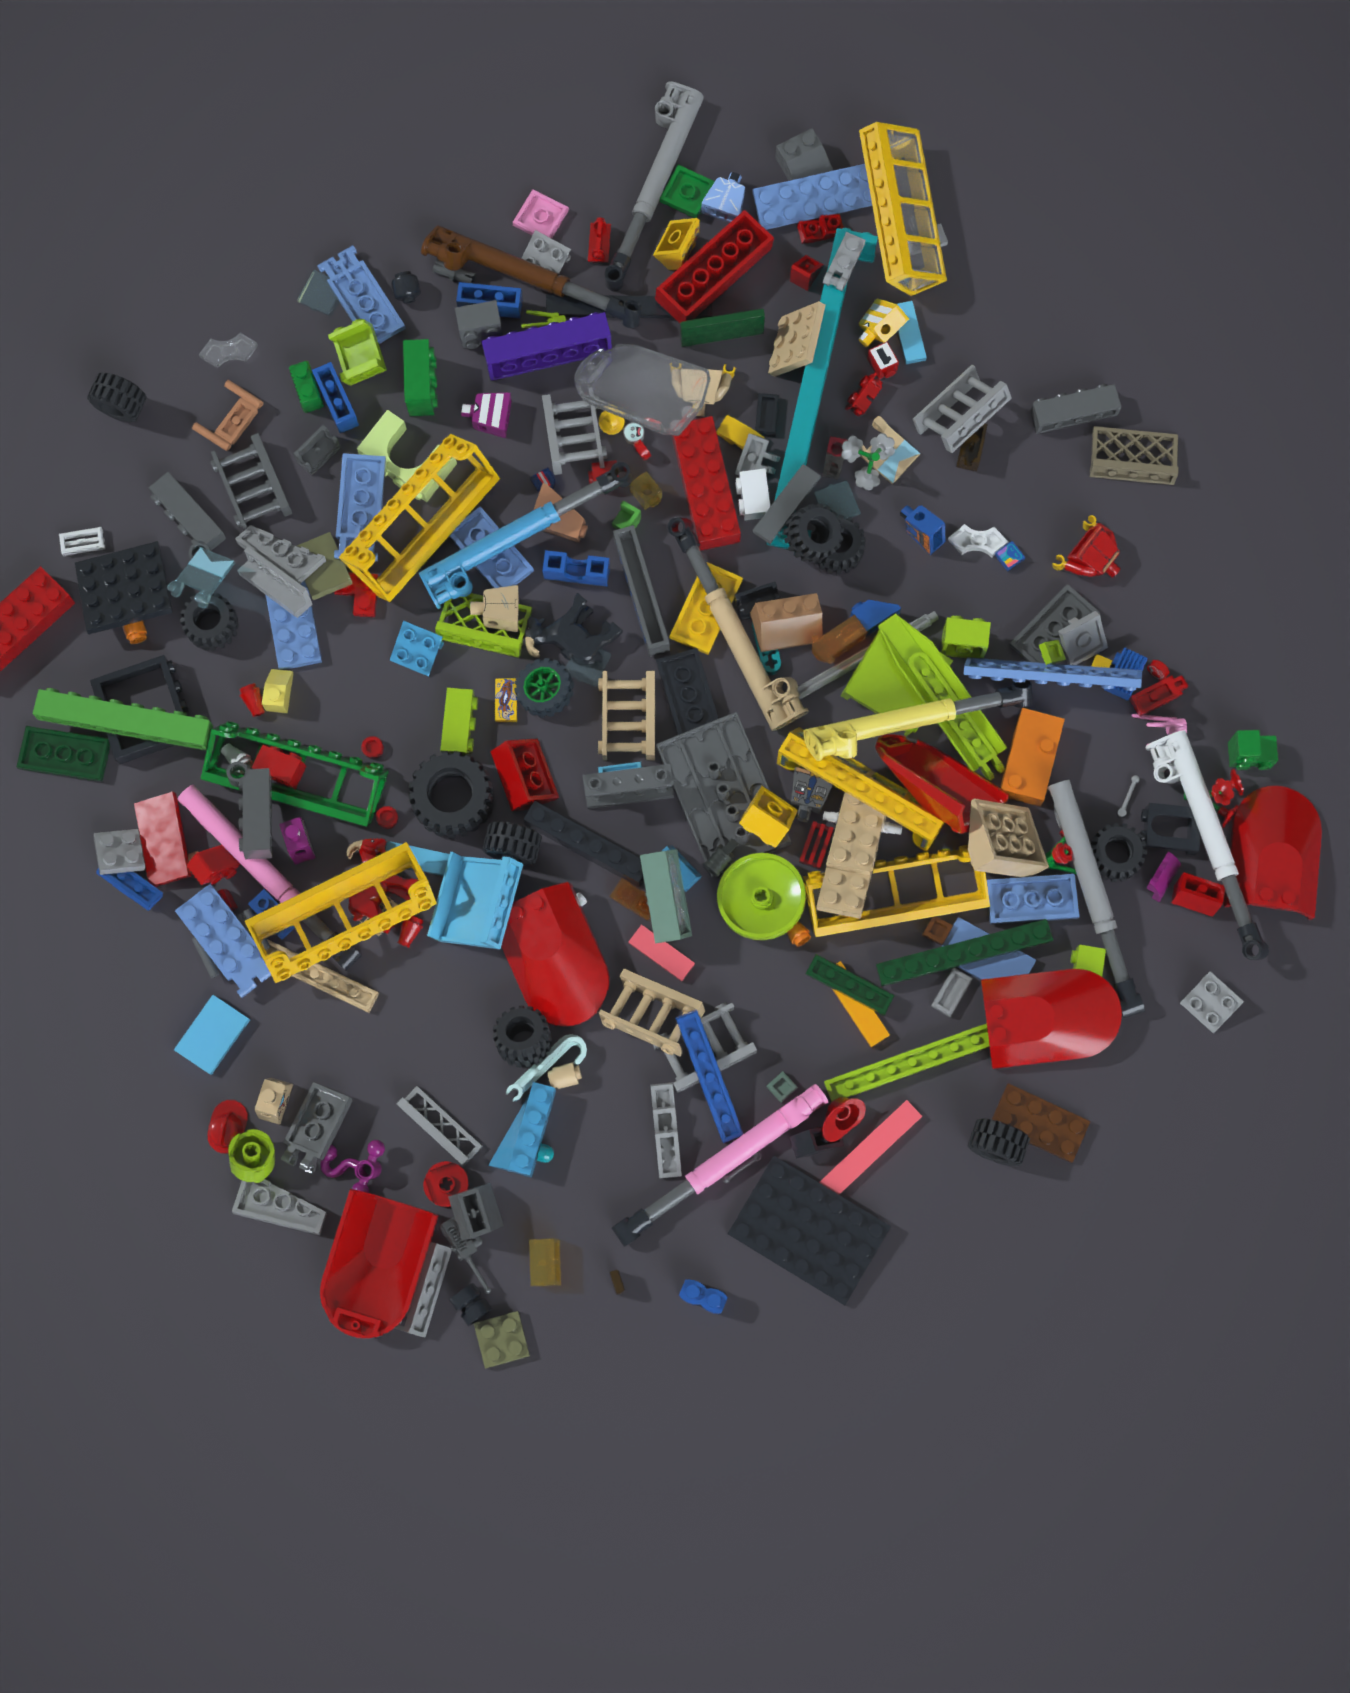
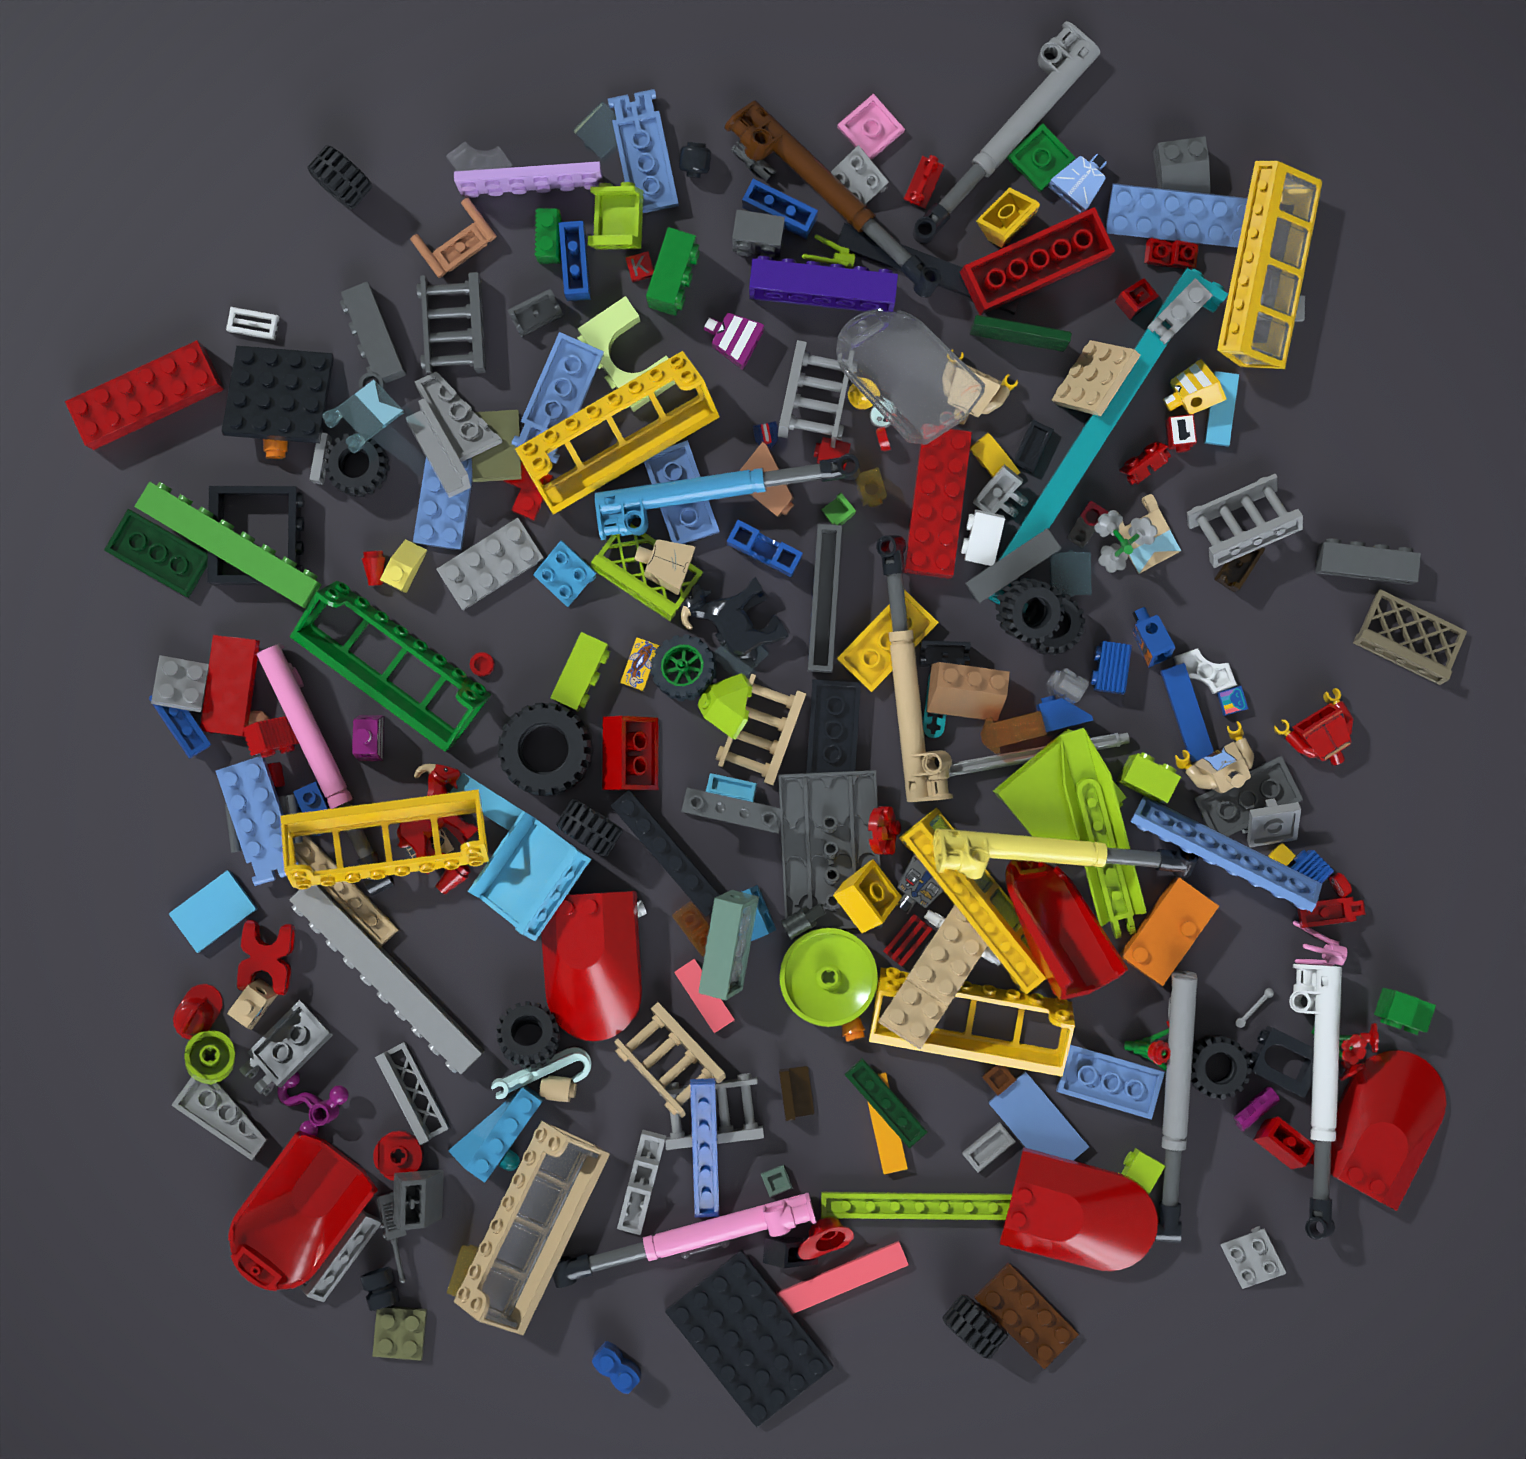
camera: 20 degrees right, 10 degrees up
(176, 628) = (317, 471): none -> light grey tile
(235, 755) = (336, 626): white cone -> none
(256, 810) = (333, 699): dark grey hinge -> none
(271, 1055) = (266, 957): none -> red piece
(274, 346) = (522, 179): none -> lavender plate
(283, 767) = (376, 651): red brick -> none
(350, 663) = (490, 564): none -> light grey plate
(382, 1033) = (388, 977): none -> light grey brick
(387, 817) = (471, 745): red tile -> none
(391, 386) = (640, 266): none -> red tile
(585, 1199) = (531, 1229): none -> window
(591, 701) = (725, 704): none -> lime slope
(617, 1282) = (535, 1322): dark brown tile -> none
(762, 757) = (884, 829): none -> red plate
(770, 1005) = (796, 1092): none -> dark brown panel
(868, 586) = (1067, 685): none -> clear brick
(900, 563) = (1111, 667): none -> blue brick
(964, 952) = (1017, 1113): dark green plate -> none
(976, 577) = (1187, 711): none -> blue tile
(1004, 840) = (1104, 1016): tan slope -> none
(1023, 609) = (1222, 768): none -> tan torso
(1052, 652) = (1234, 828): lime plate -> none

